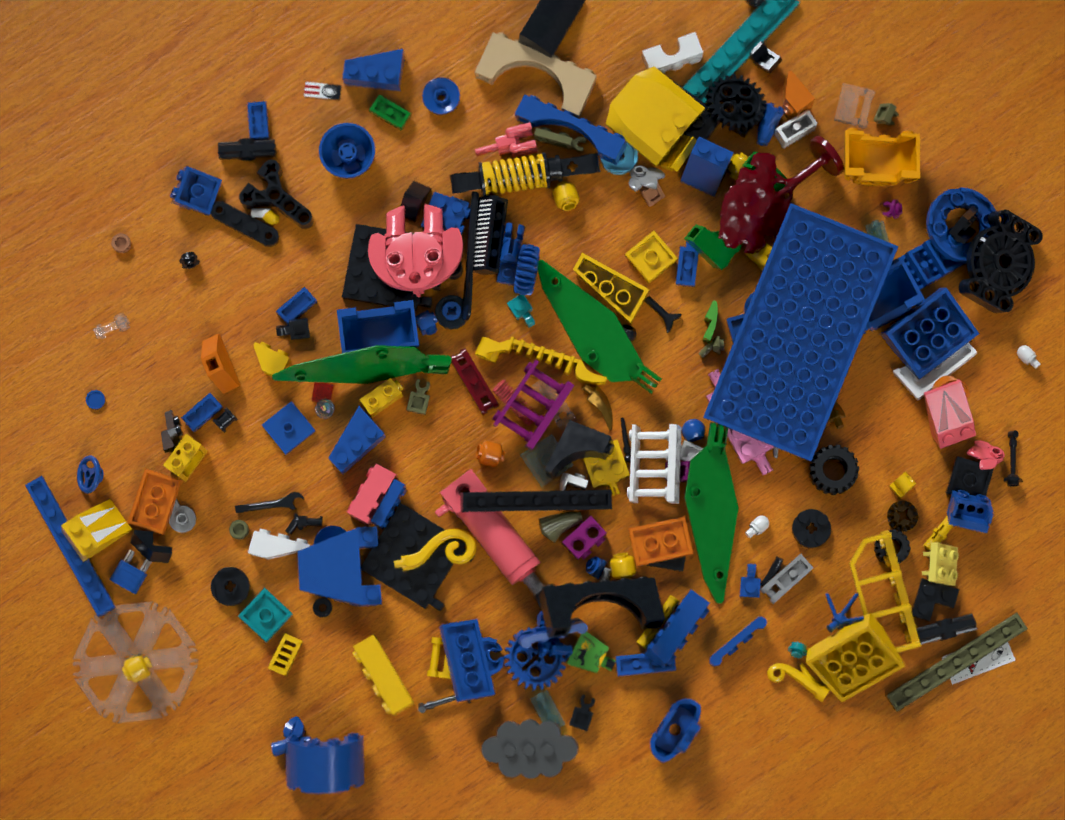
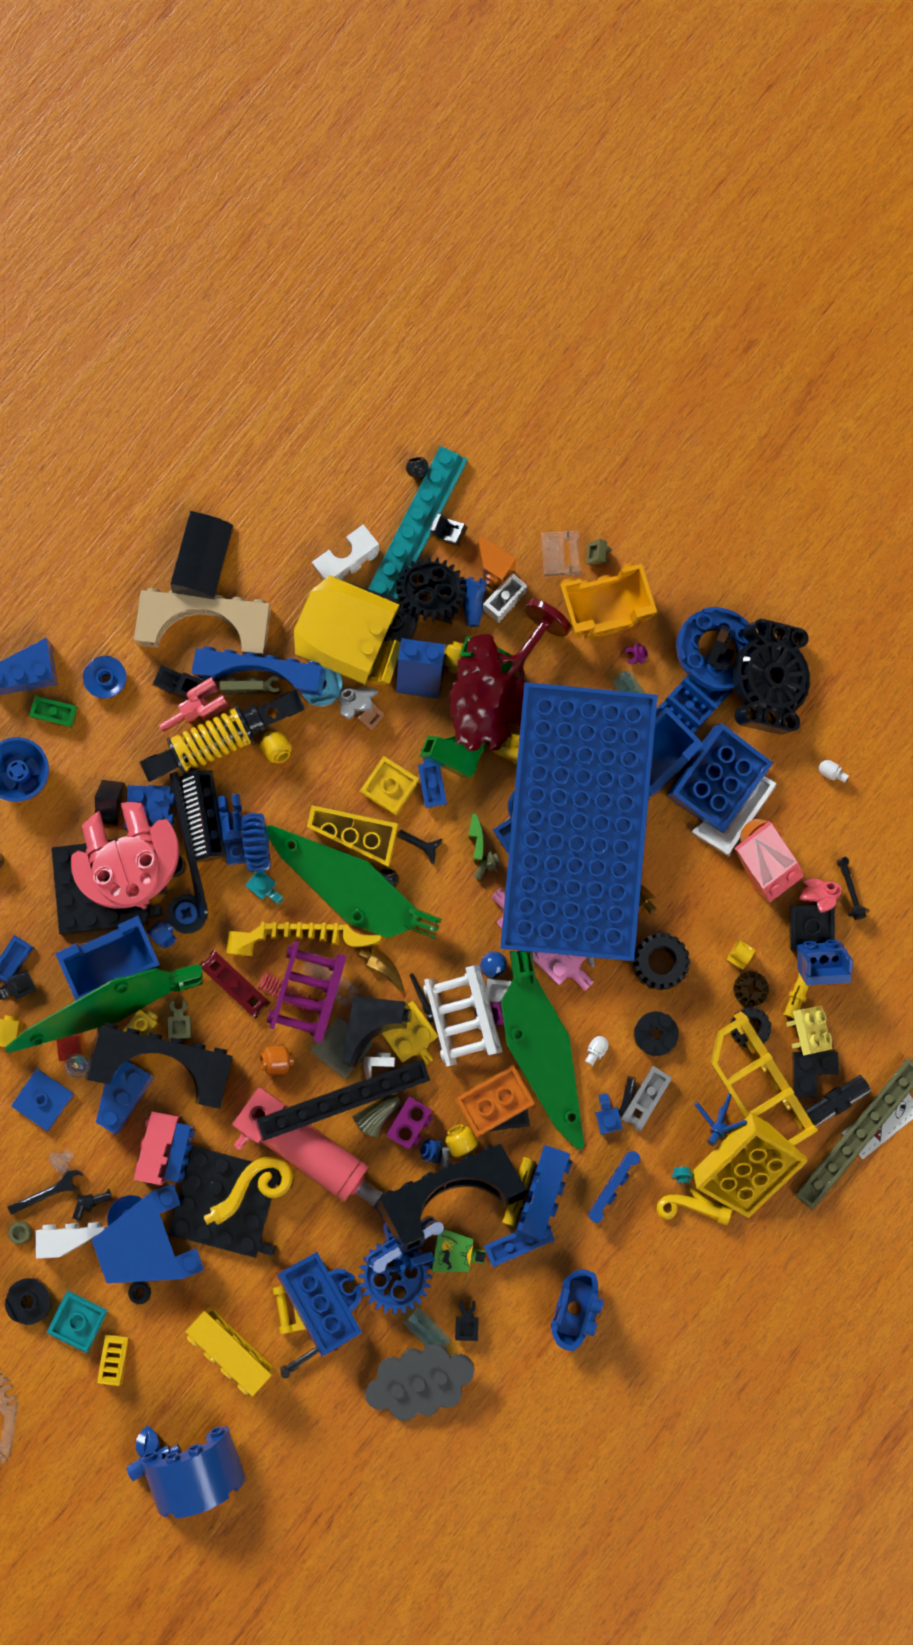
camera: 20 degrees left, 0 degrees up
(289, 482) = (60, 1162): none -> clear tile
(430, 441) = (116, 1047): none -> black arch
(497, 117) = (174, 682): none -> black slope

